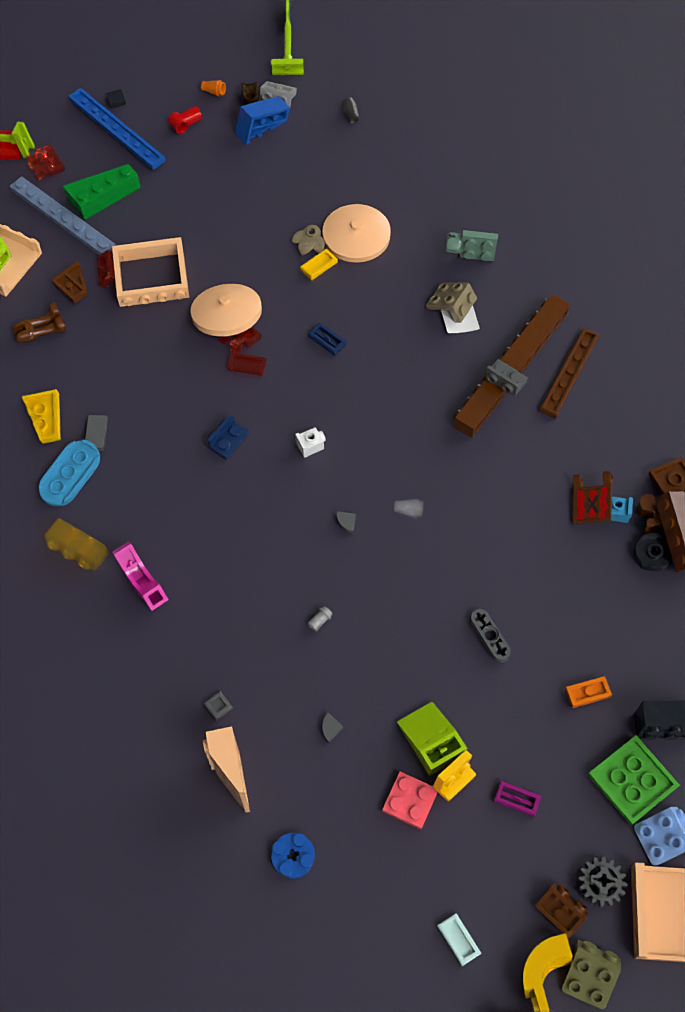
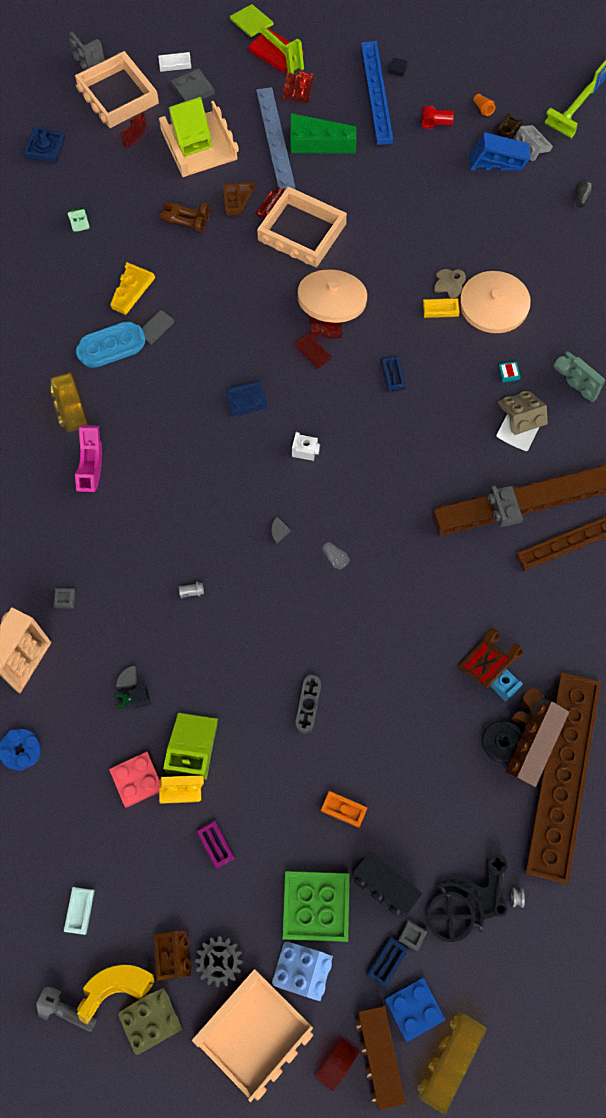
camera: 40 degrees right, 5 degrees up
(354, 734) = (138, 697): none -> black piece
(414, 278) = (509, 372): none -> tile

